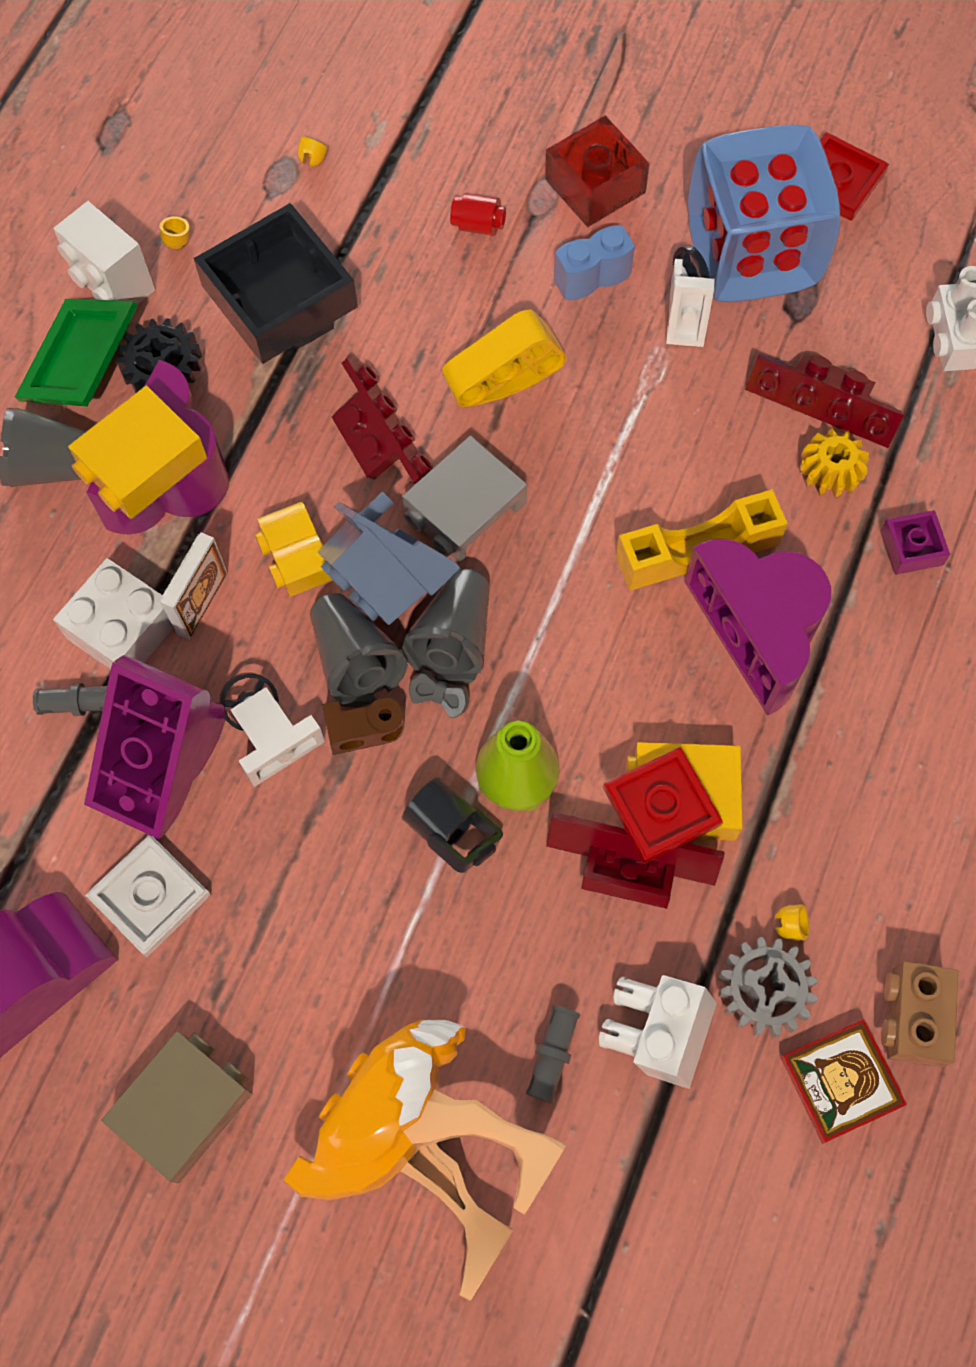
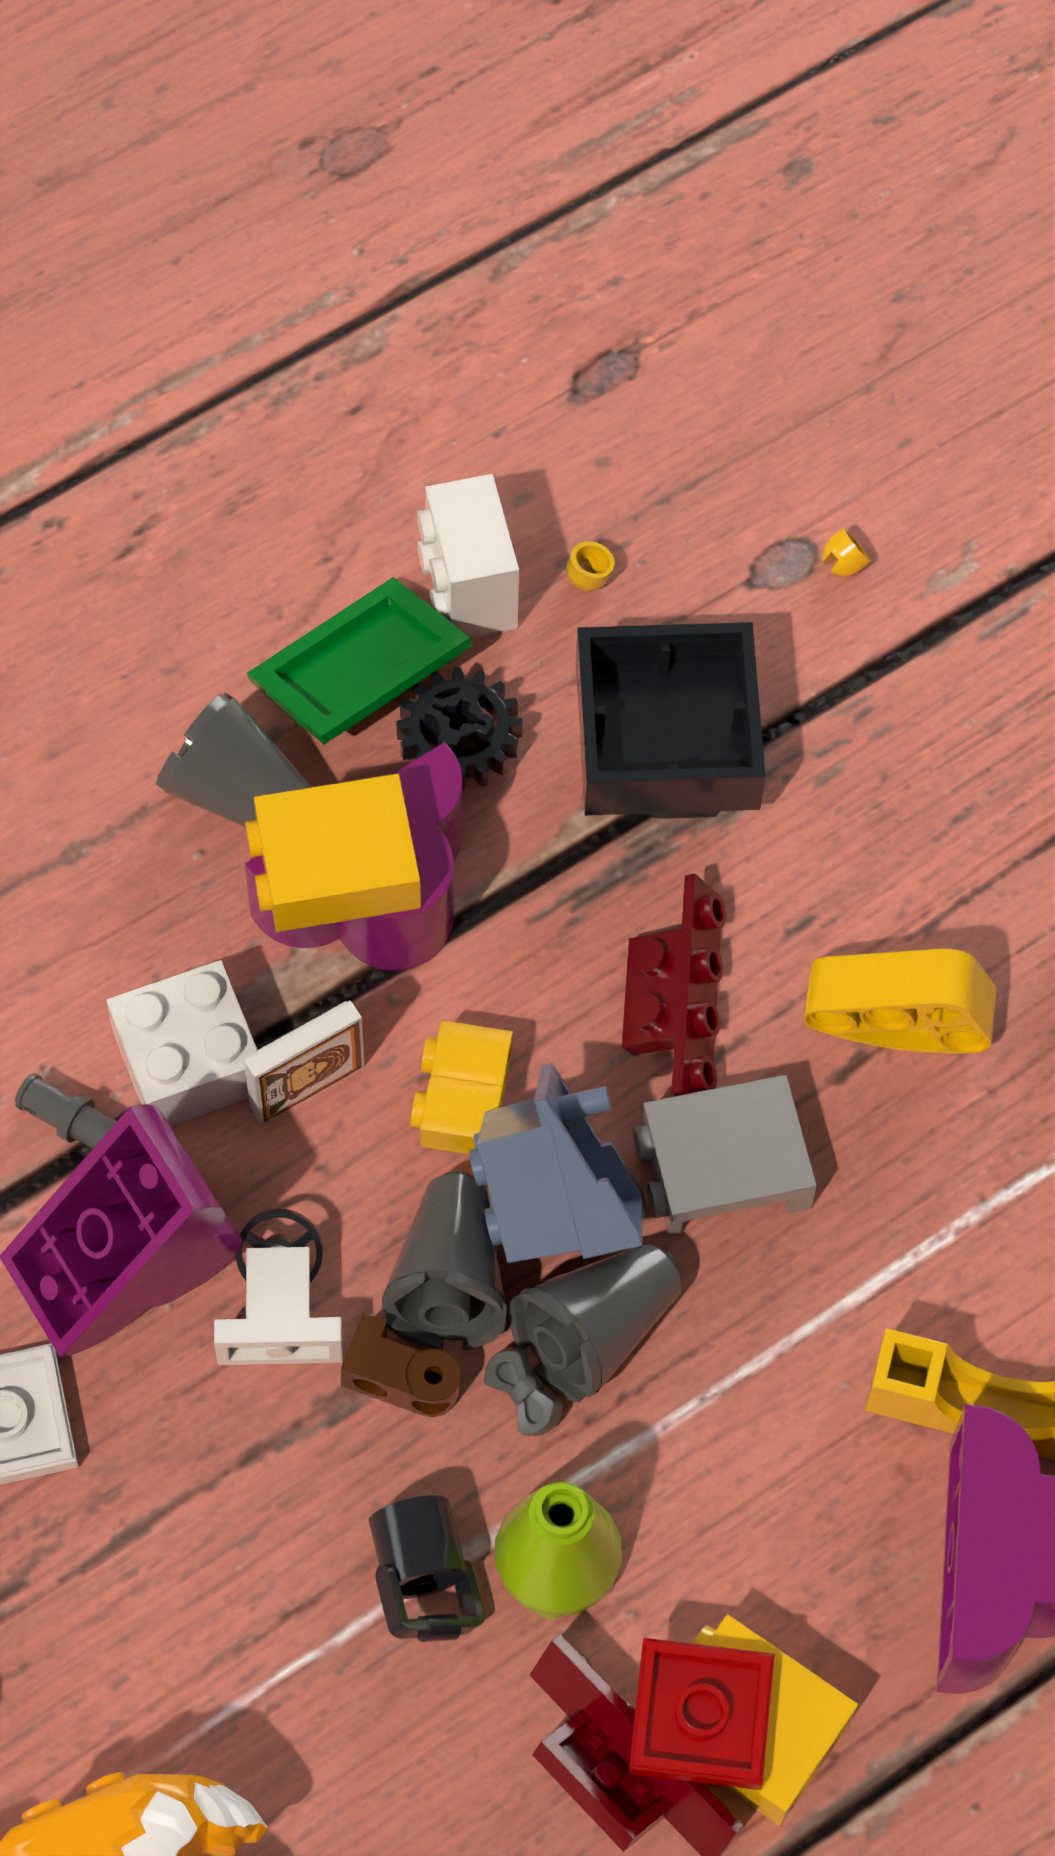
camera: 30 degrees right, 5 degrees down
(477, 214) = (1010, 771): red brick -> none

